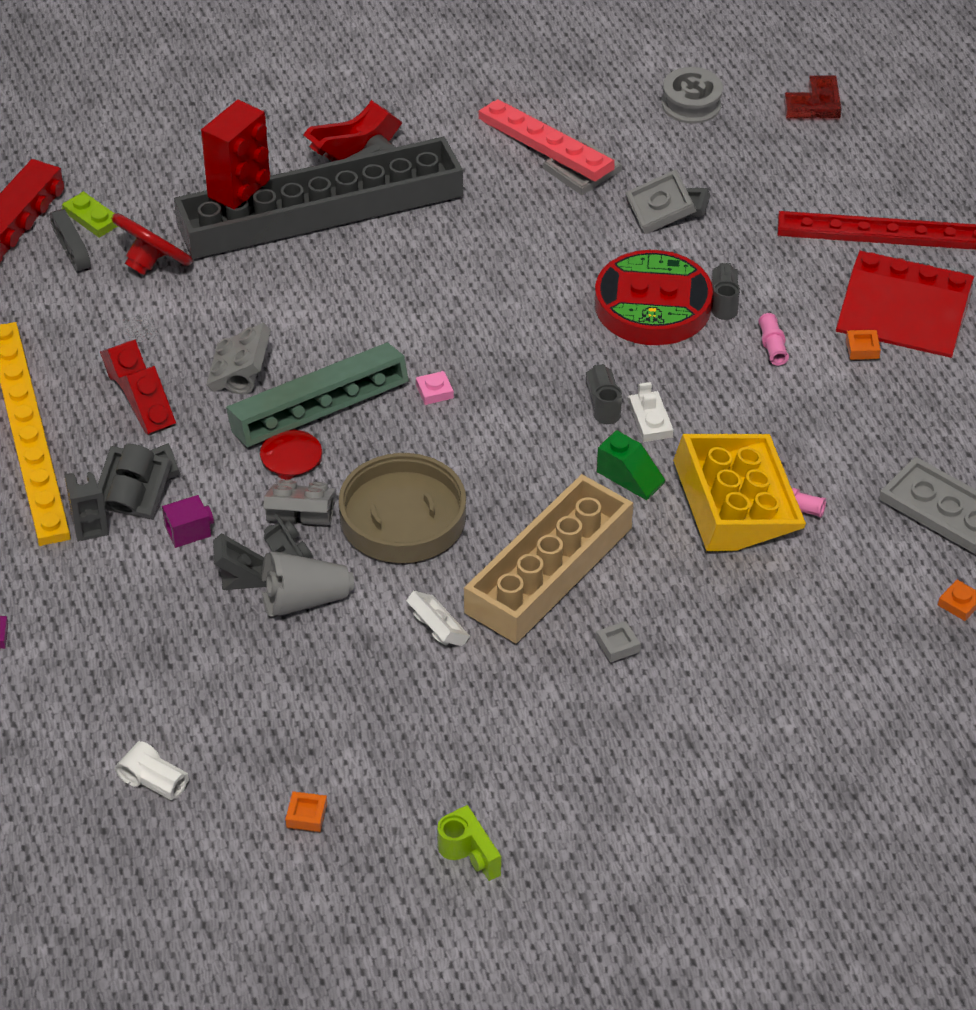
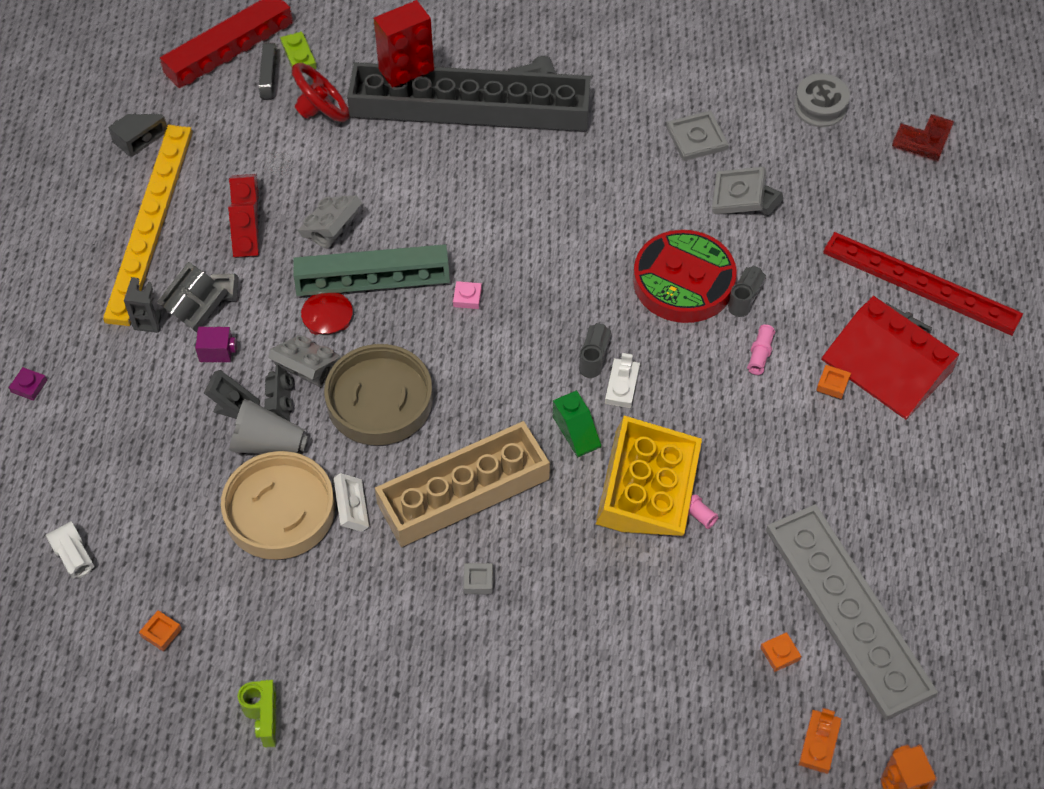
camera: 25 degrees right, 10 degrees up
(350, 137) = (520, 51): red arch -> none
(360, 647) = (278, 505): none -> tan piece
(546, 140) = (679, 103): coral plate -> none

